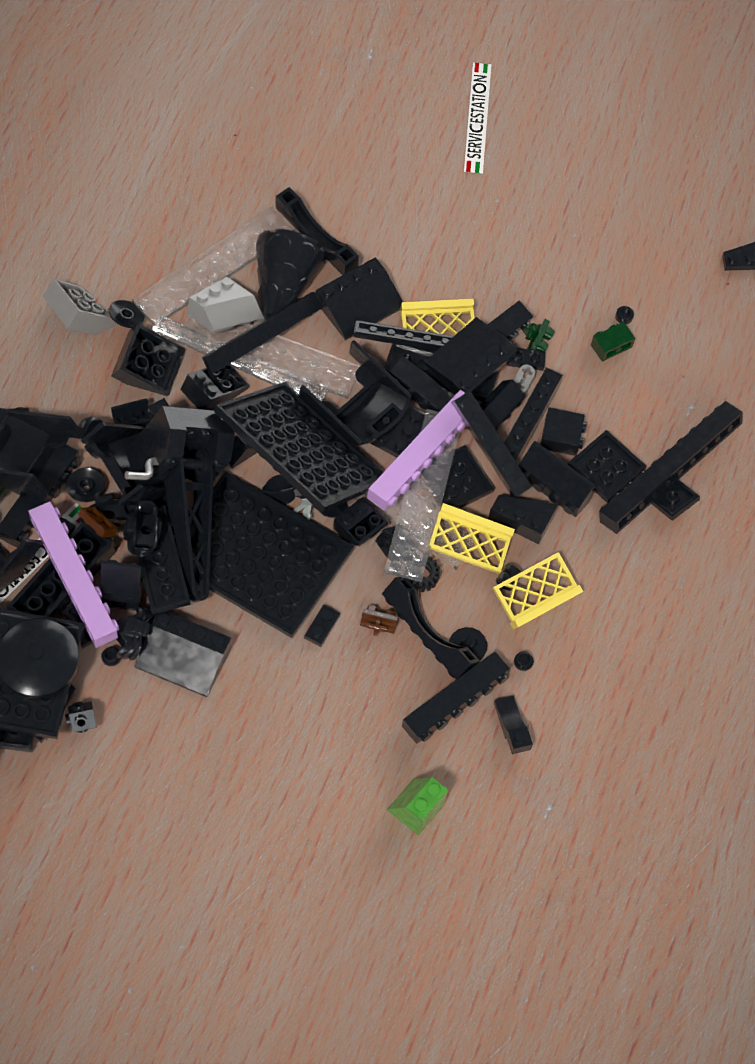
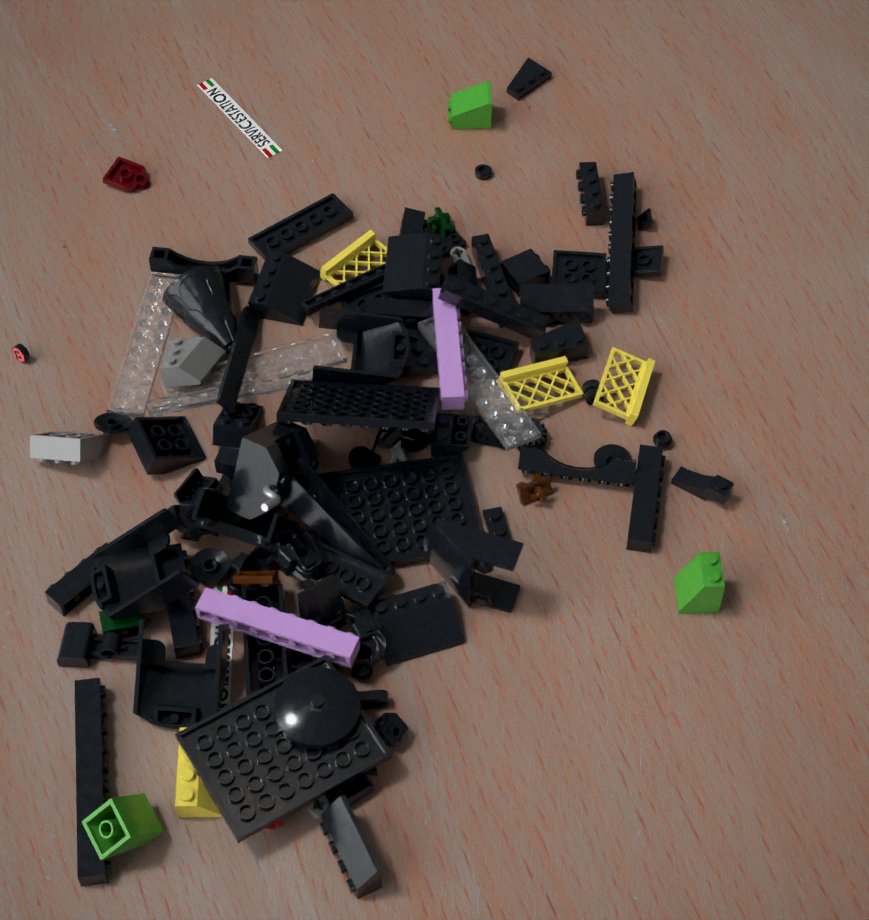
camera: 35 degrees left, 10 degrees down
(93, 682) = (373, 699): none -> black beam
(117, 203) = (20, 352): none -> black tile
(258, 647) = (460, 550): none -> black windscreen
(337, 107) = (126, 176): none -> dark red plate
(427, 254) = (301, 226): none -> black plate
(612, 341) = (494, 192): dark green brick -> none
(670, 249) = (471, 107): none -> bright green slope
(690, 403) = (590, 193): none -> black brick
(714, 461) = (645, 219): none -> black slope

